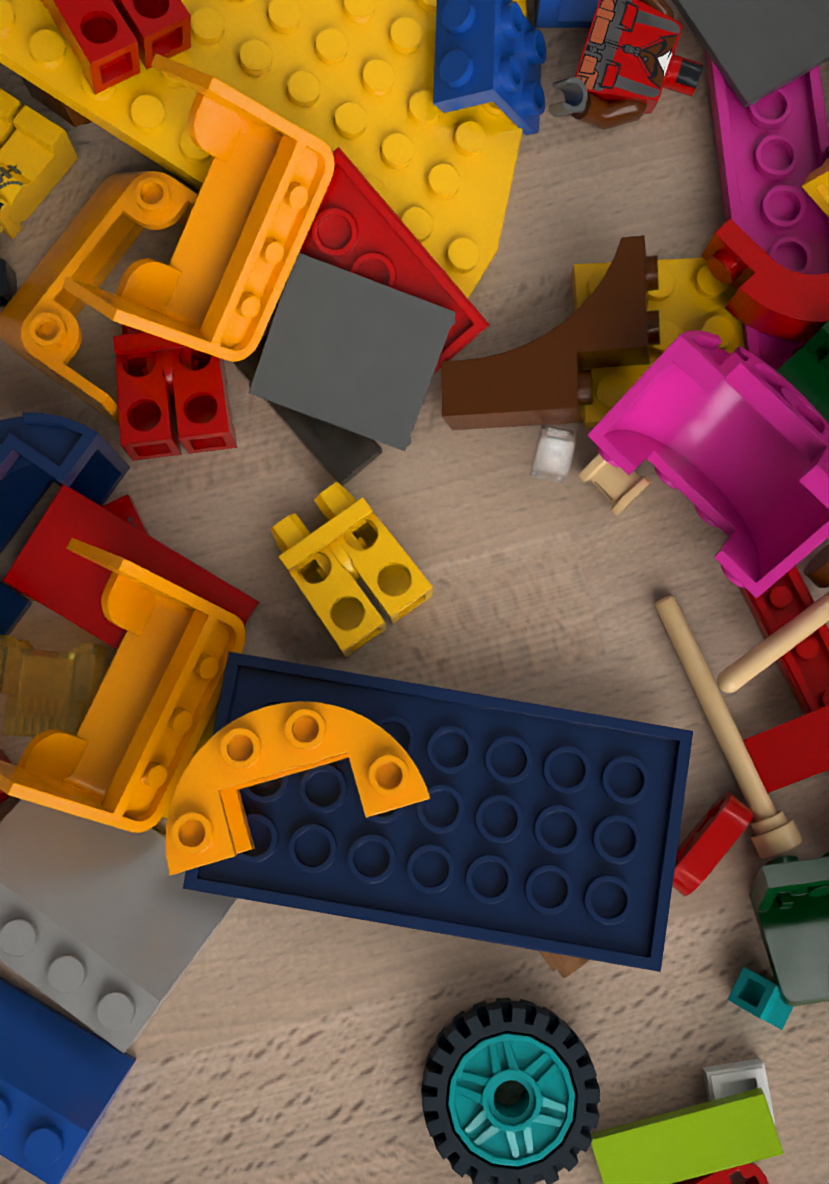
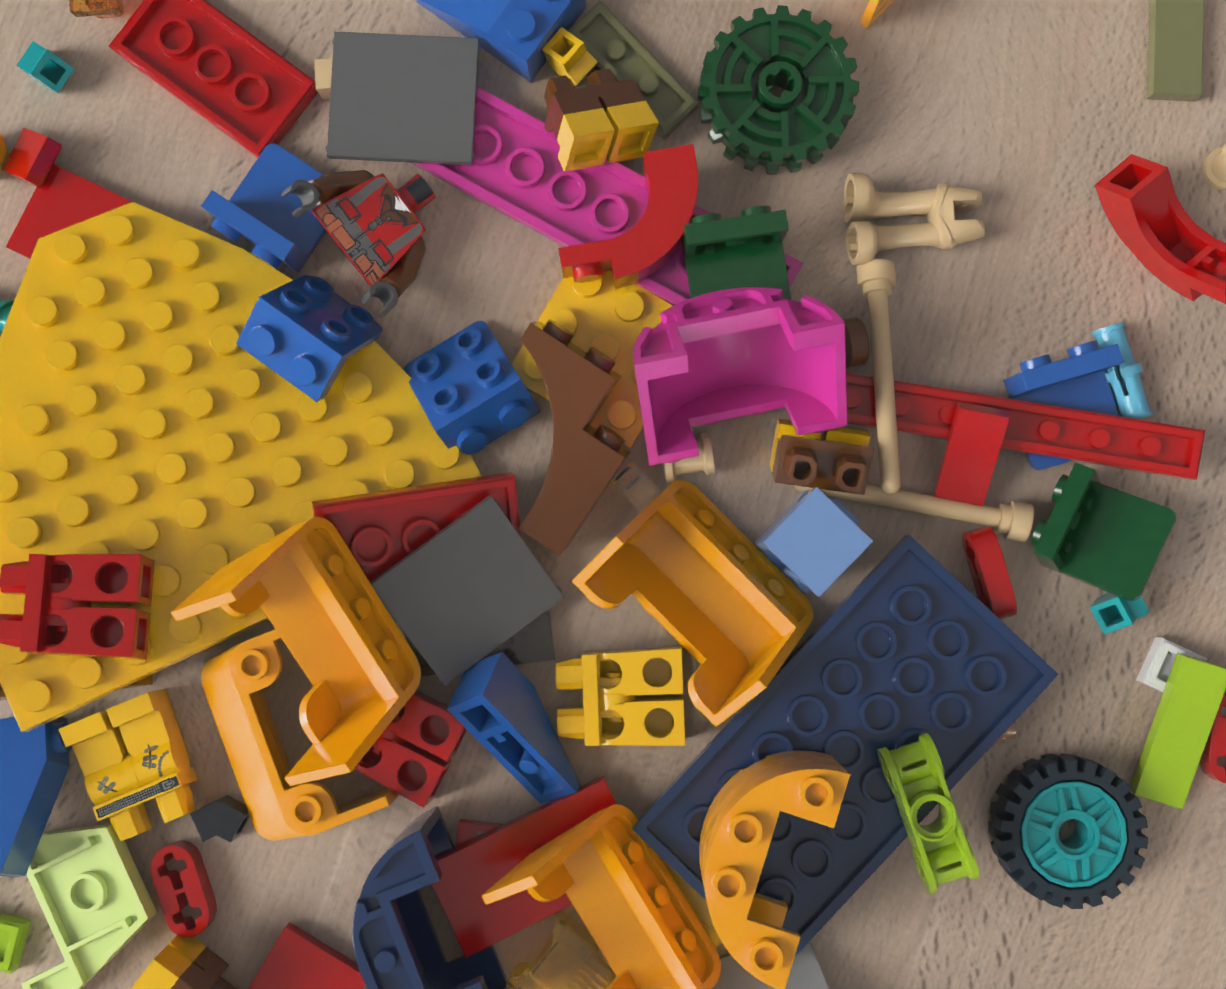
camera: 45 degrees left, 5 degrees up
(254, 475) = (511, 723): none -> blue slope
(421, 960) = (940, 847): none -> lime piece
(503, 569) = (707, 592): none -> light orange windscreen
(536, 244) = (470, 389): none -> blue bracket
(622, 641) = (813, 541): none -> medium blue piece
(703, 603) = (835, 463): none -> reddish brown hips

